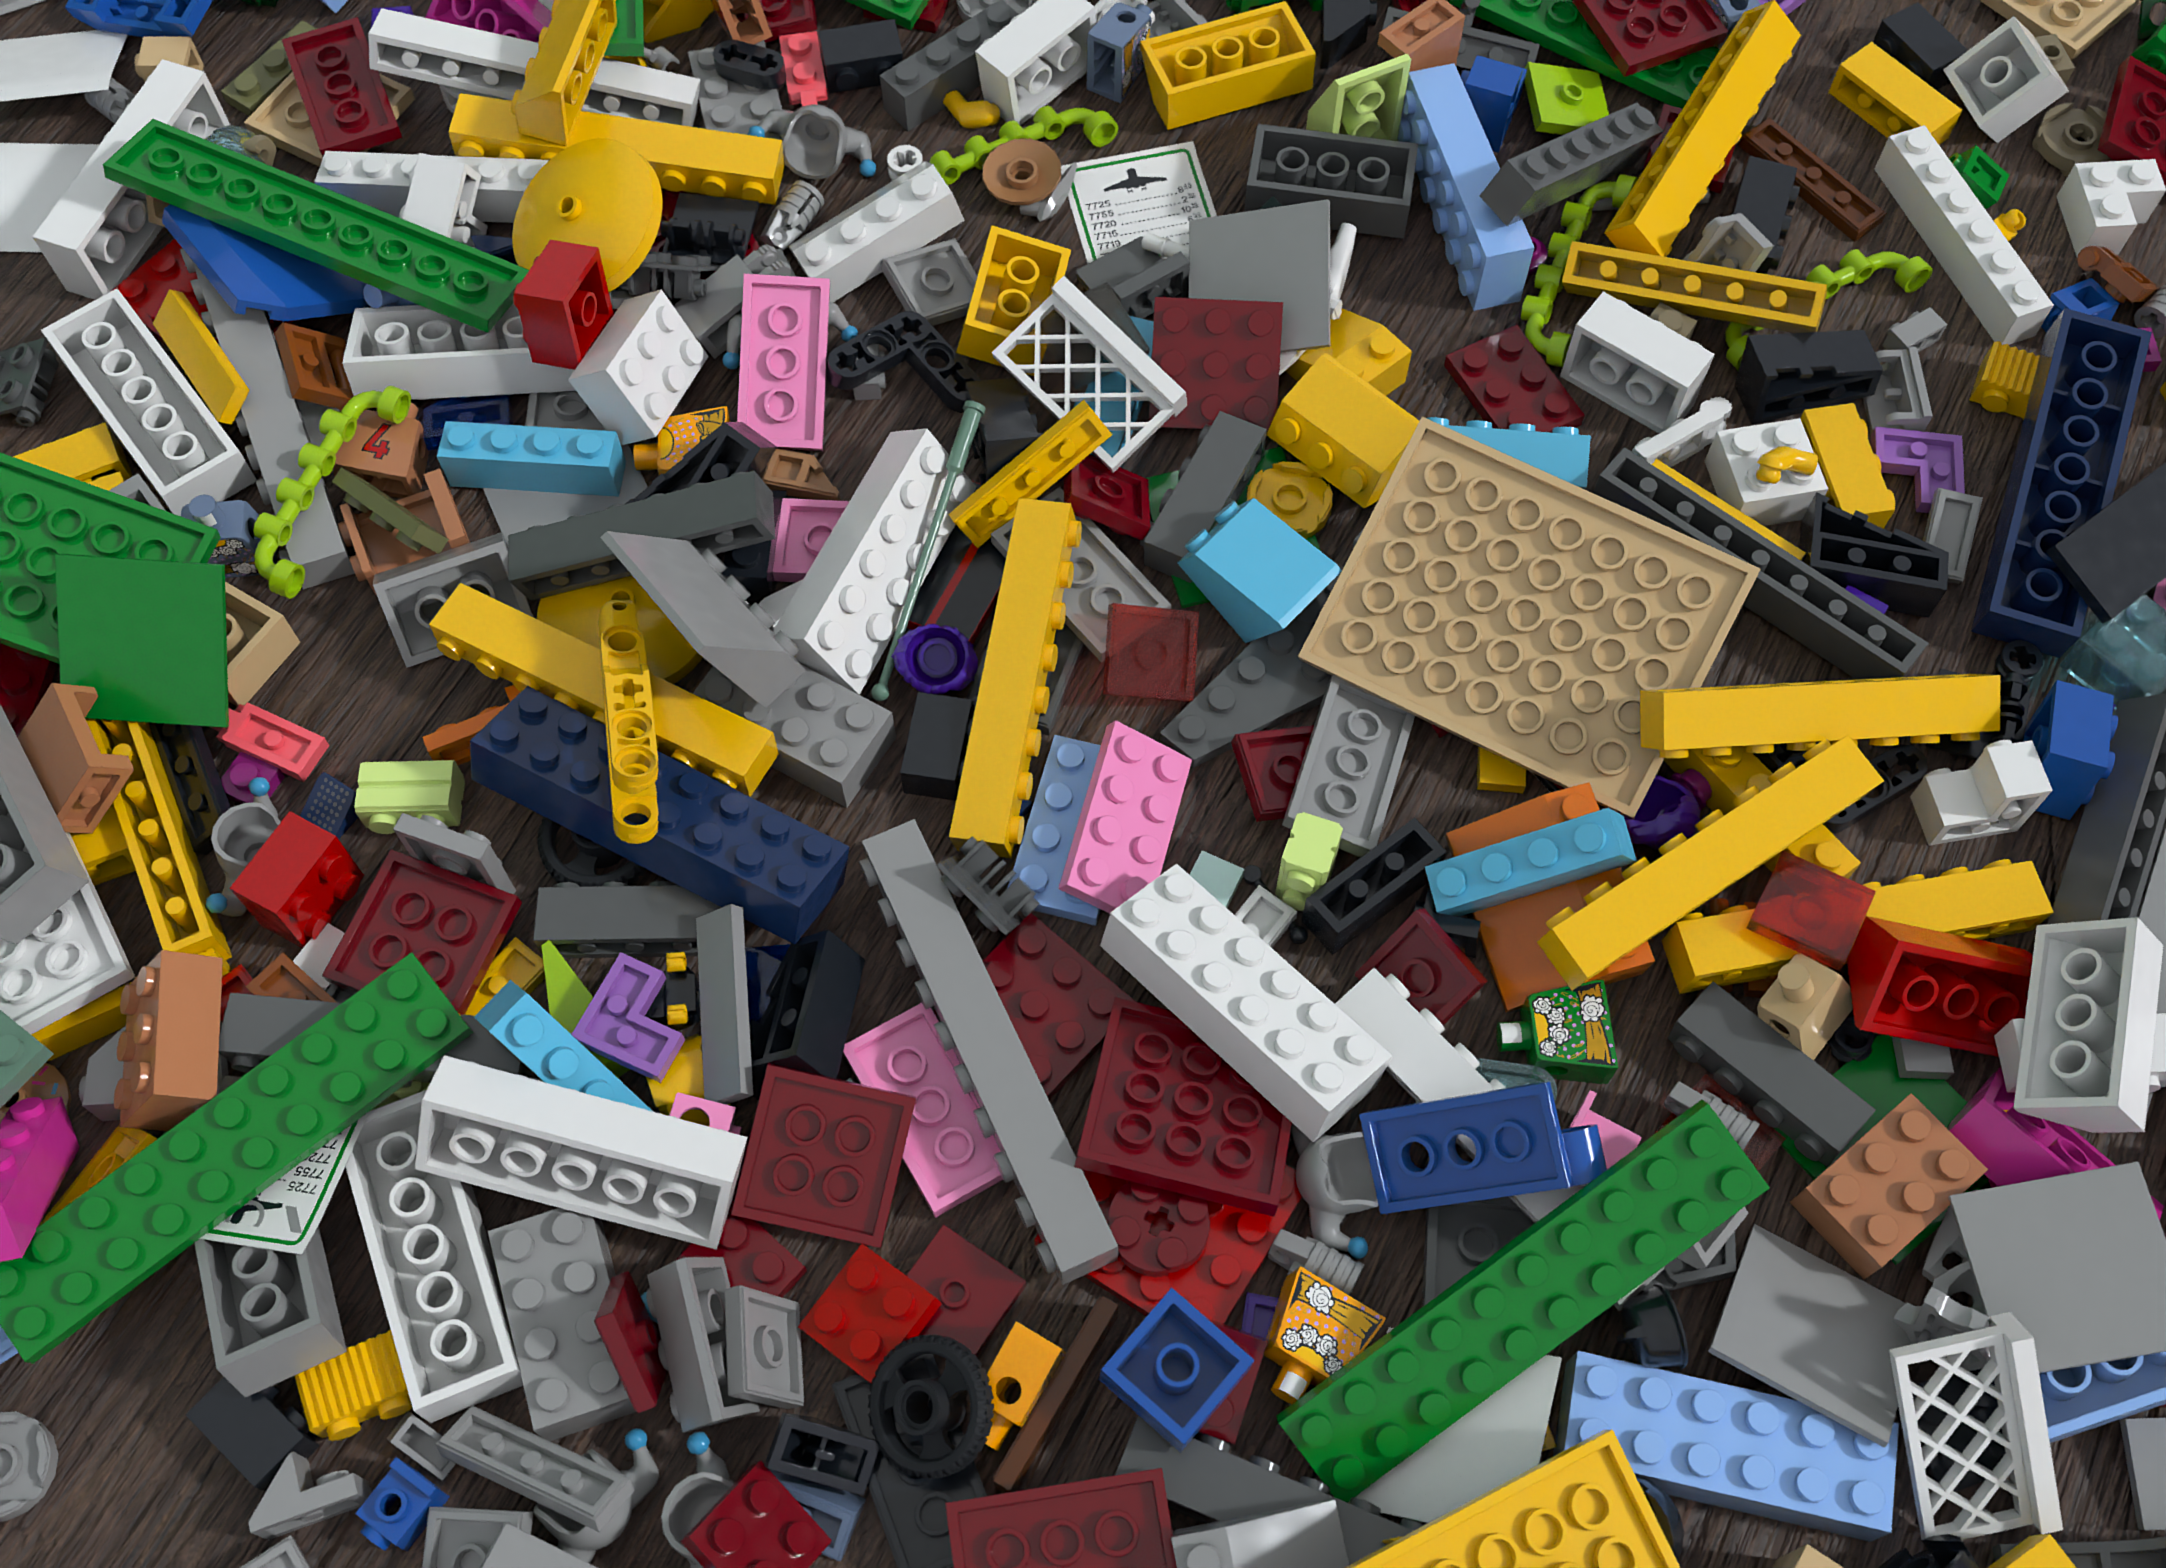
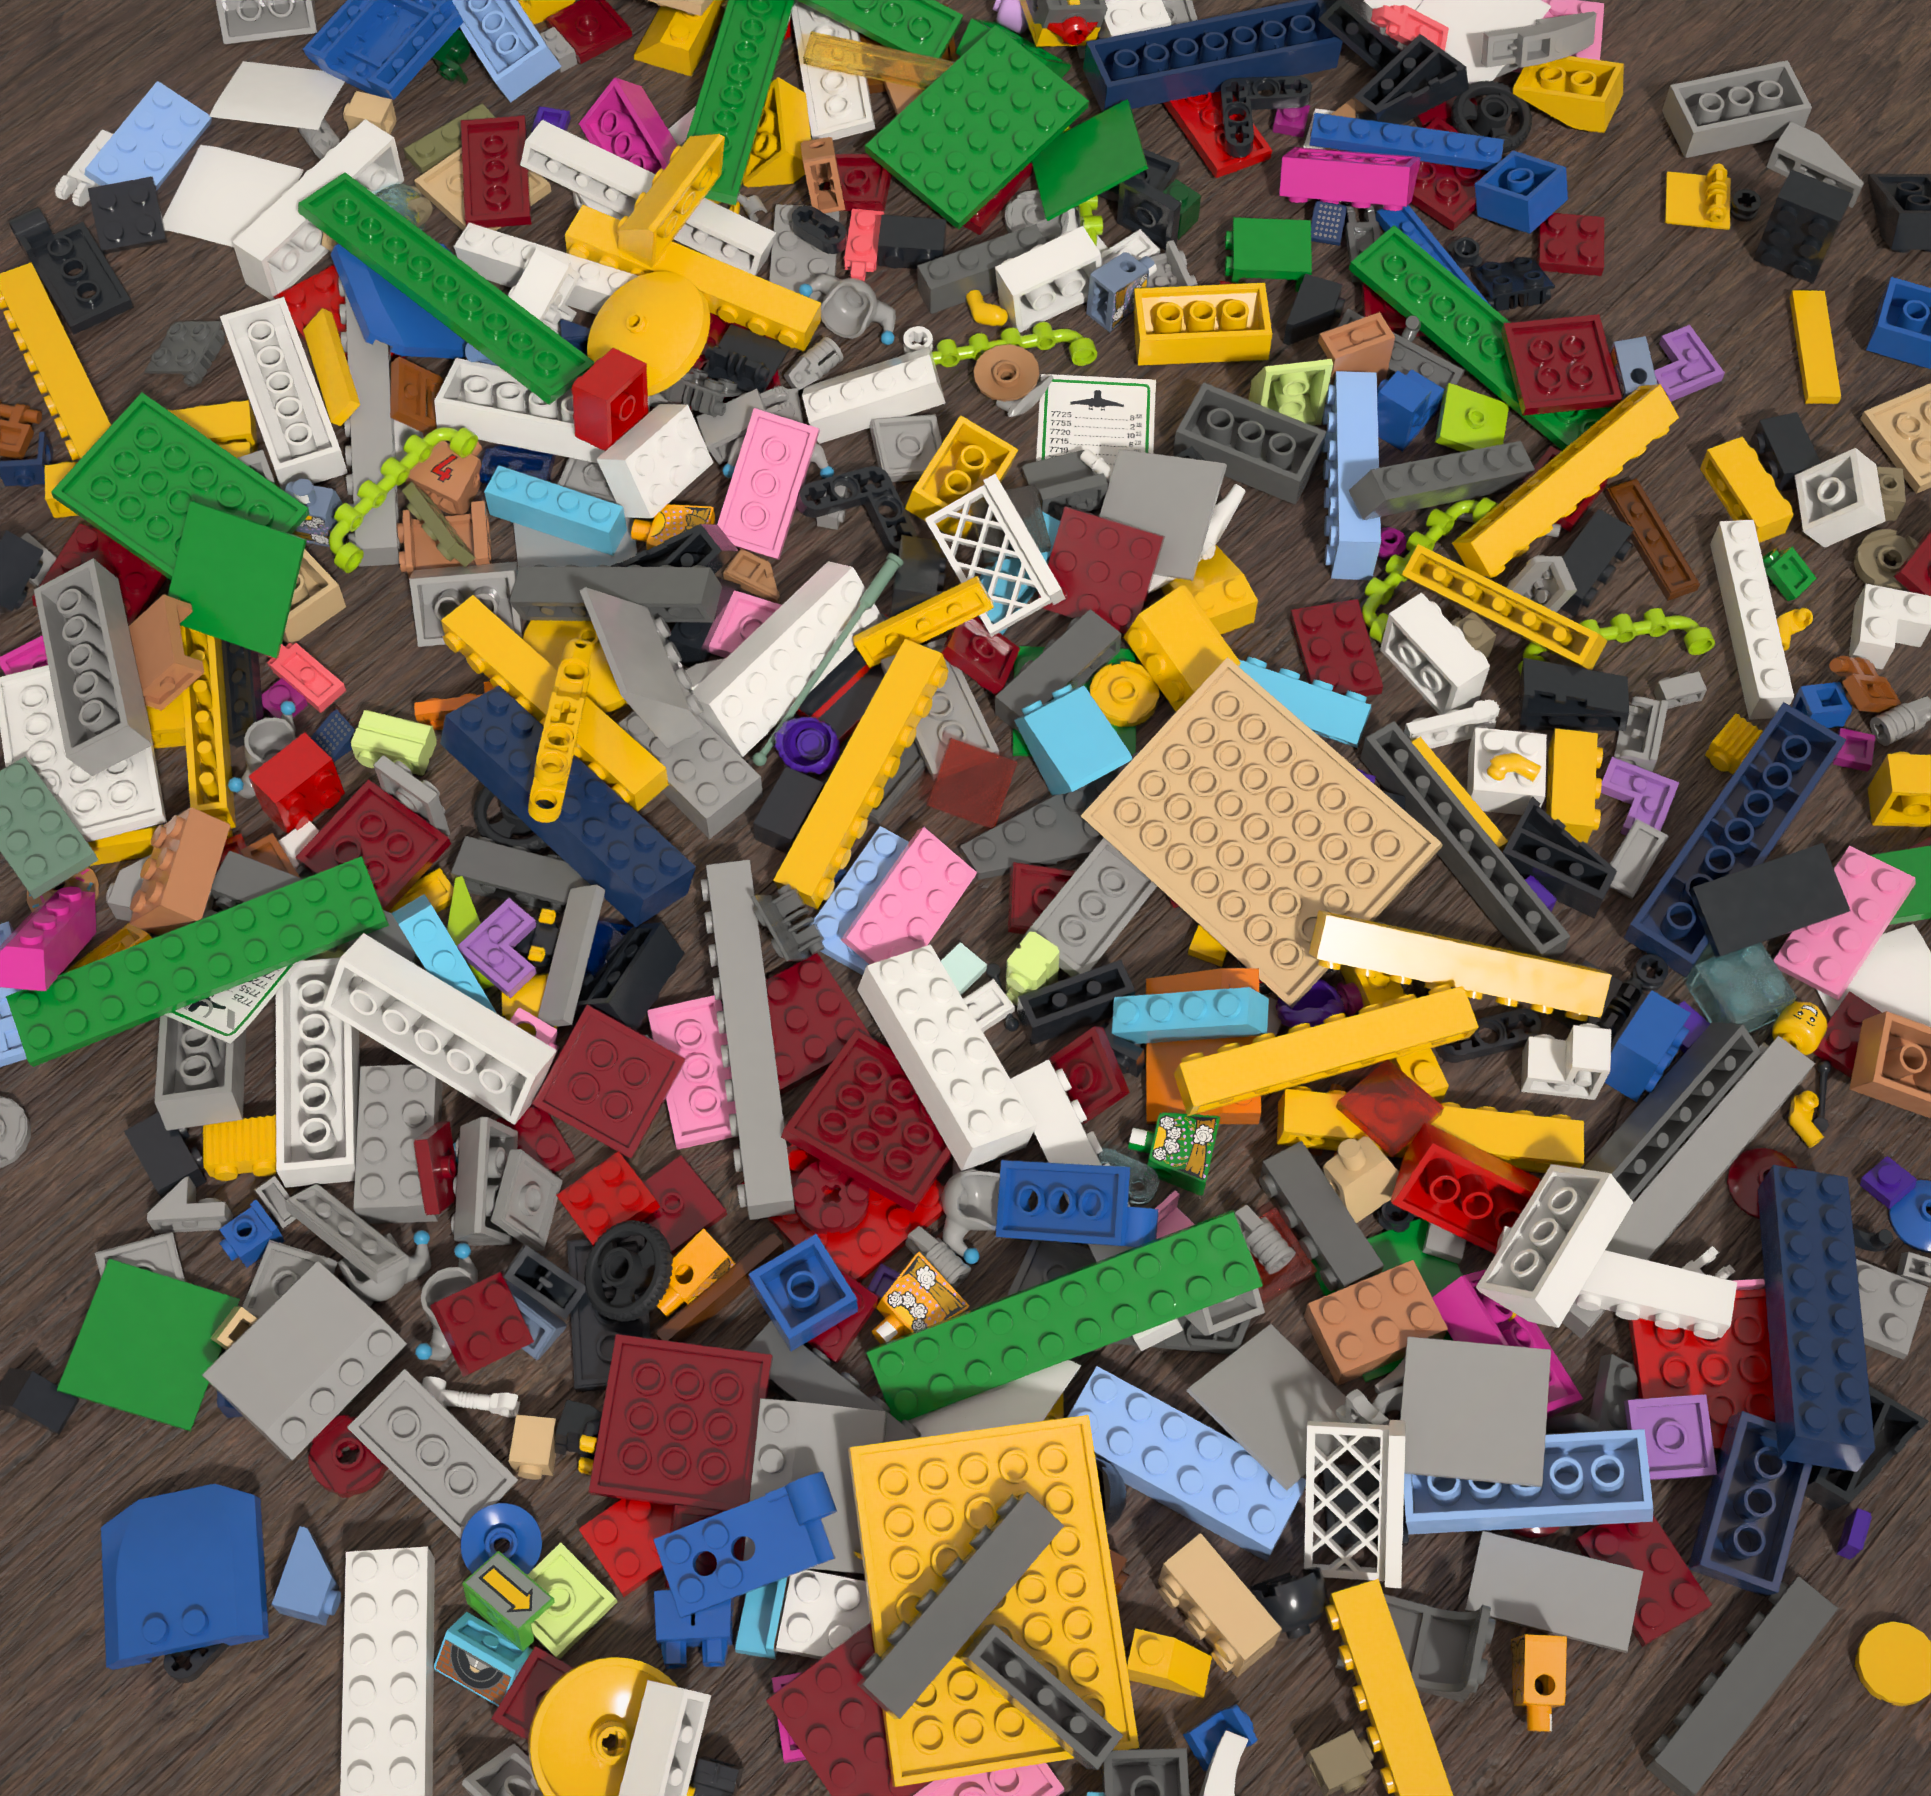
camera: 15 degrees right, 0 degrees up
(1654, 1329) = (1157, 1368): black piece -> none

